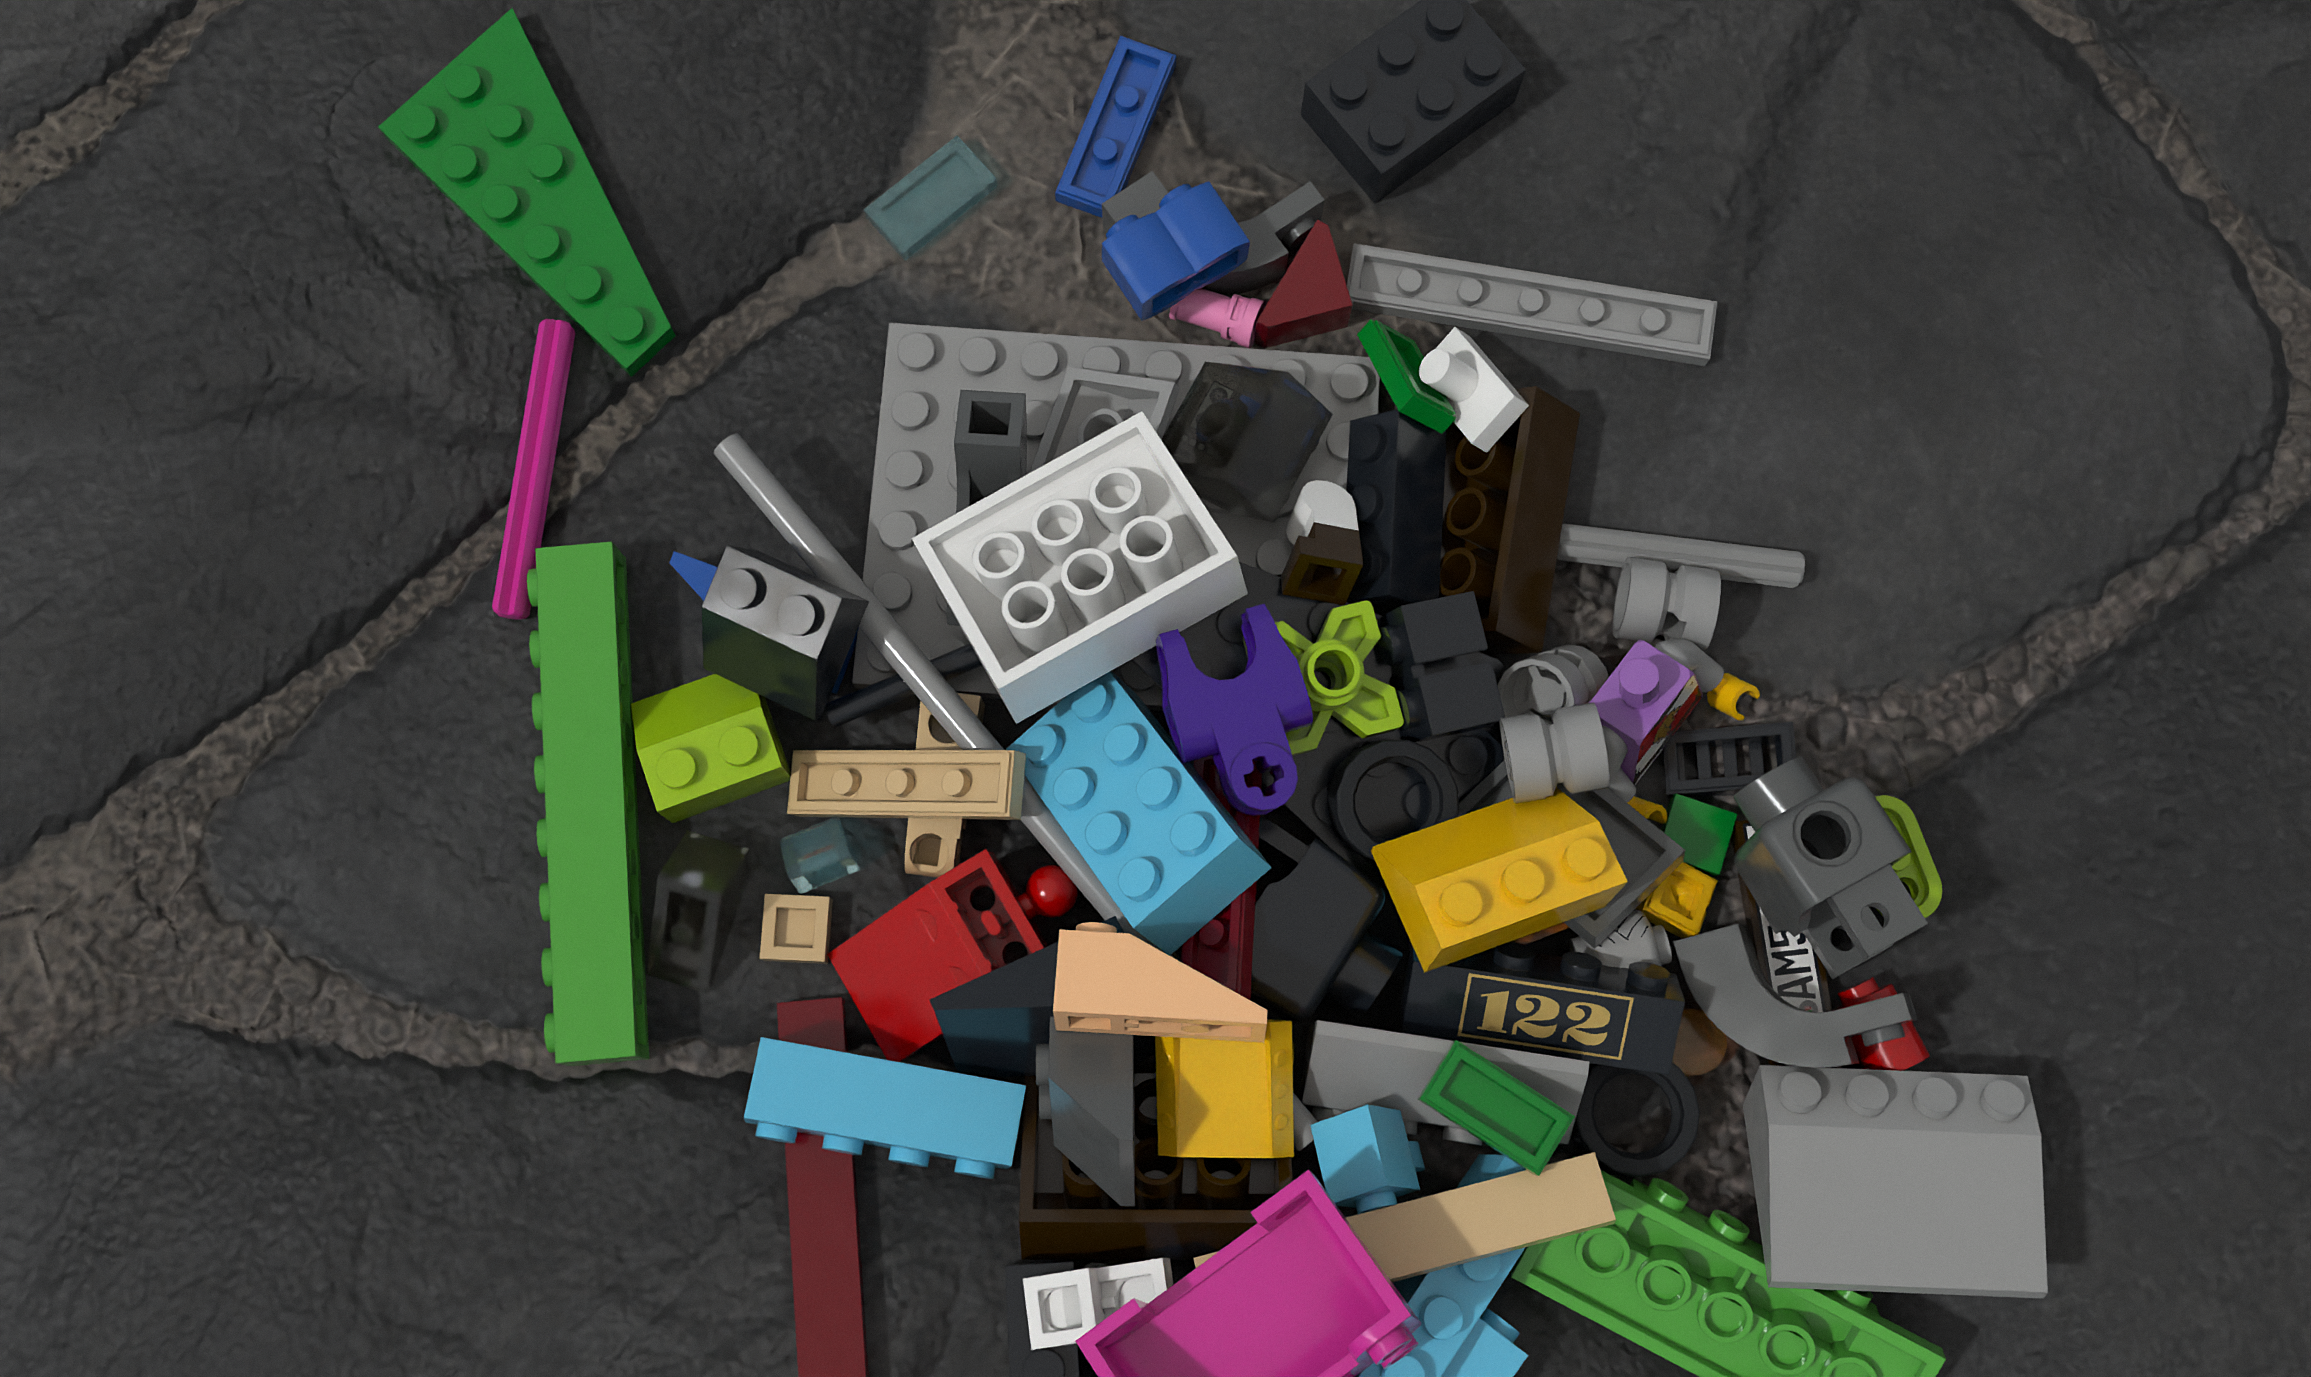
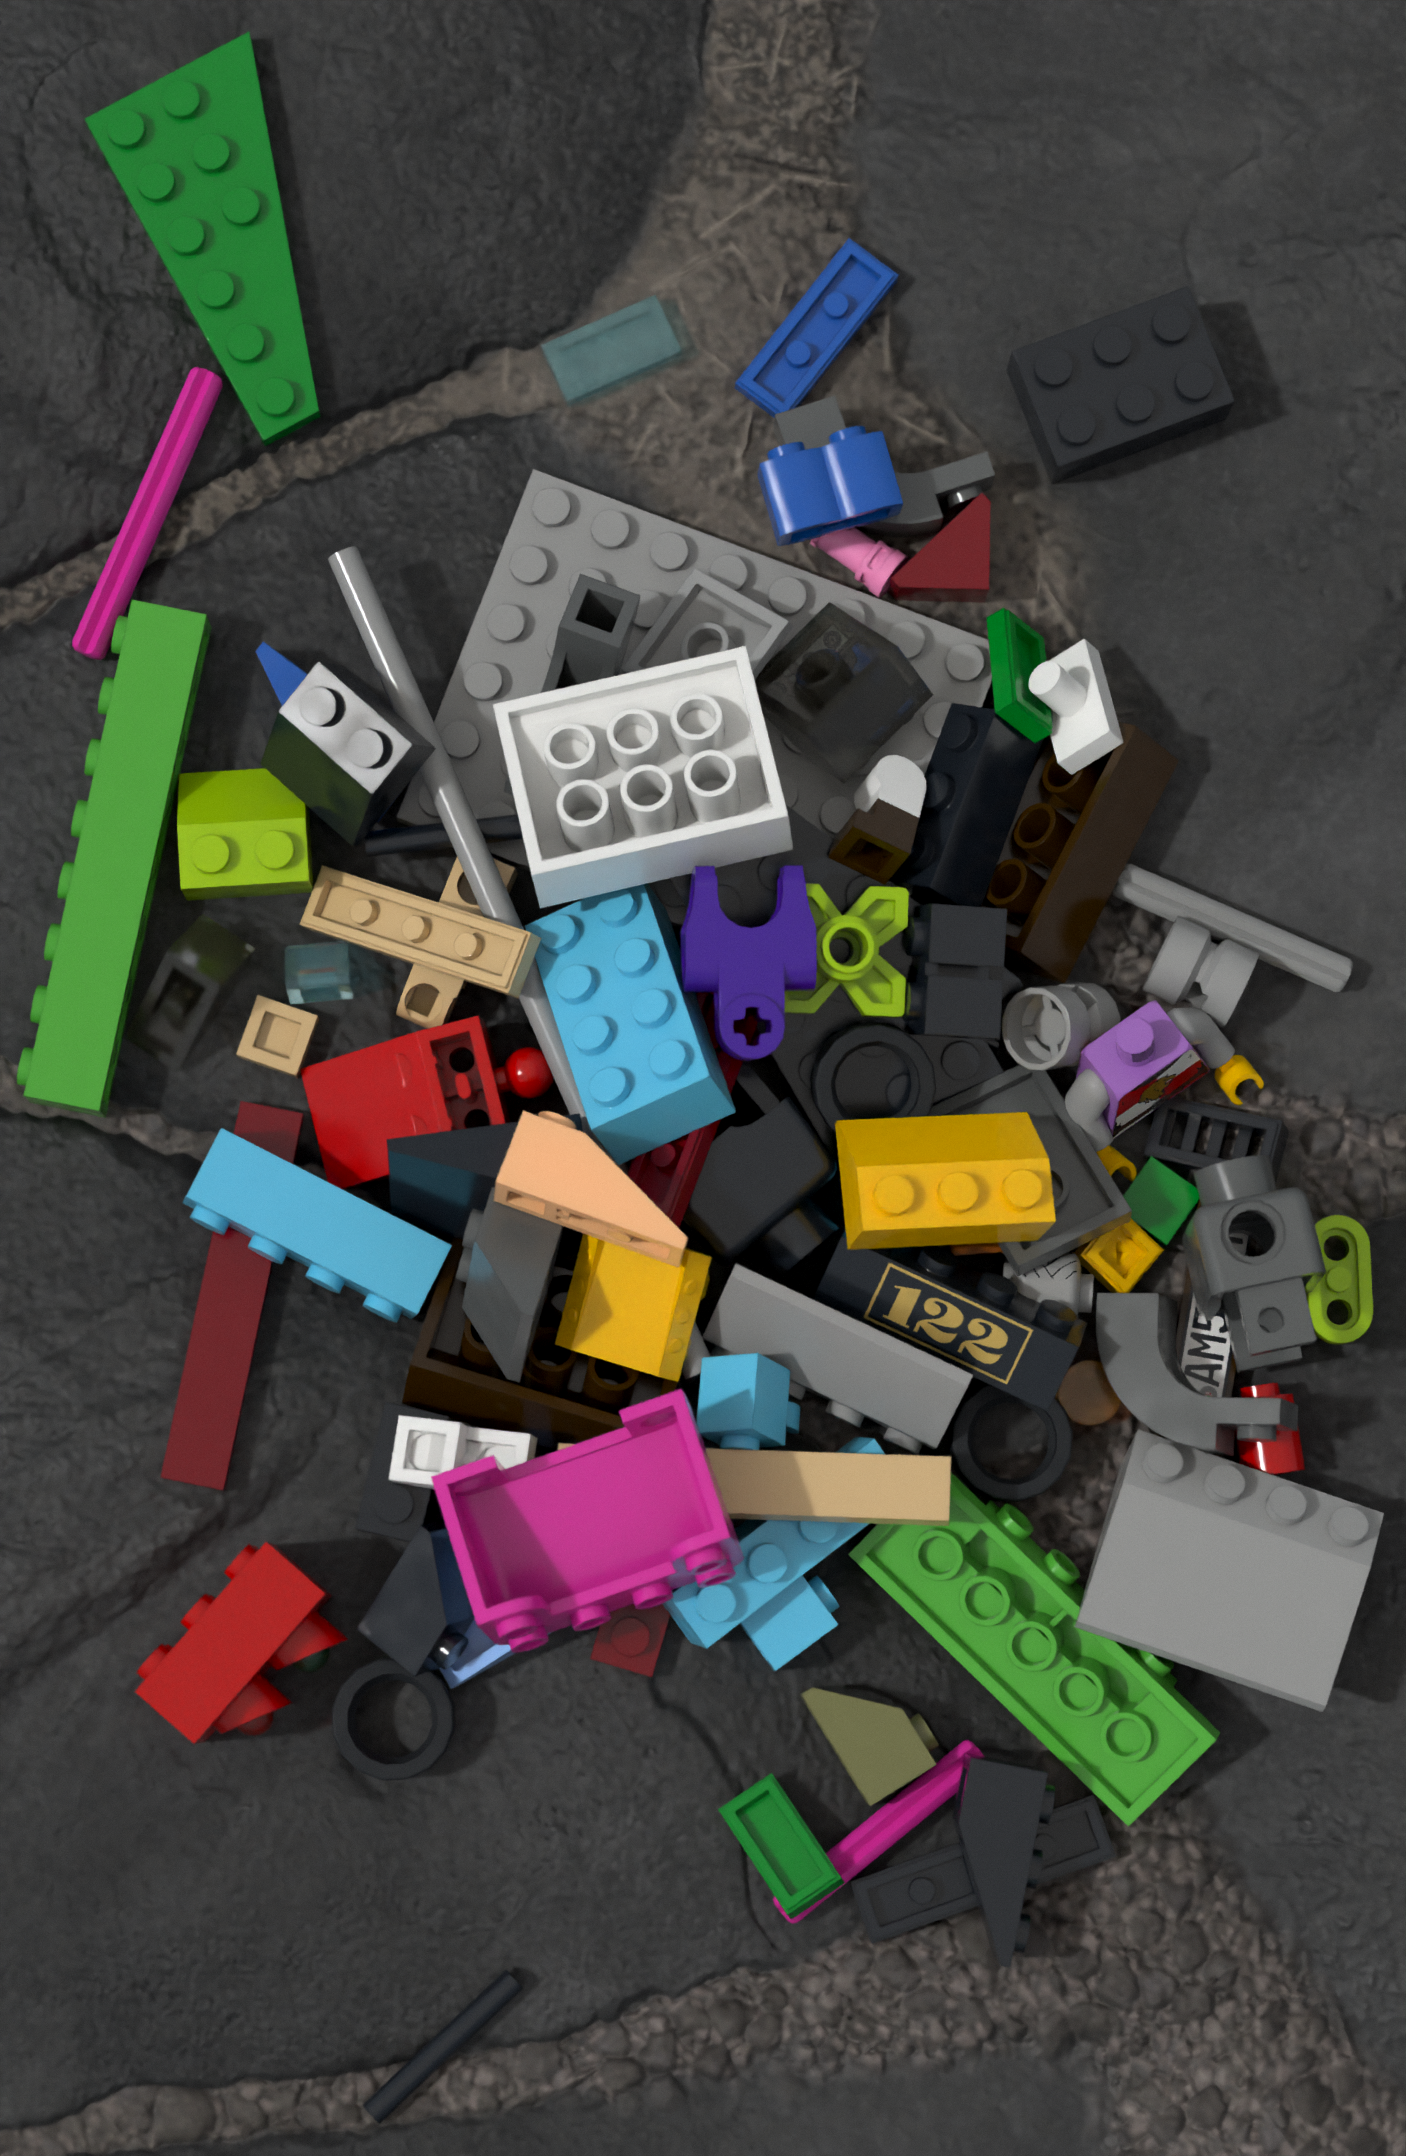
camera: 10 degrees right, 5 degrees up
(1496, 1108) = (872, 1389): green tile -> none
(1531, 304) = (1170, 634): light grey tile -> none
(1563, 752) = (1032, 1083): light grey wheel -> none

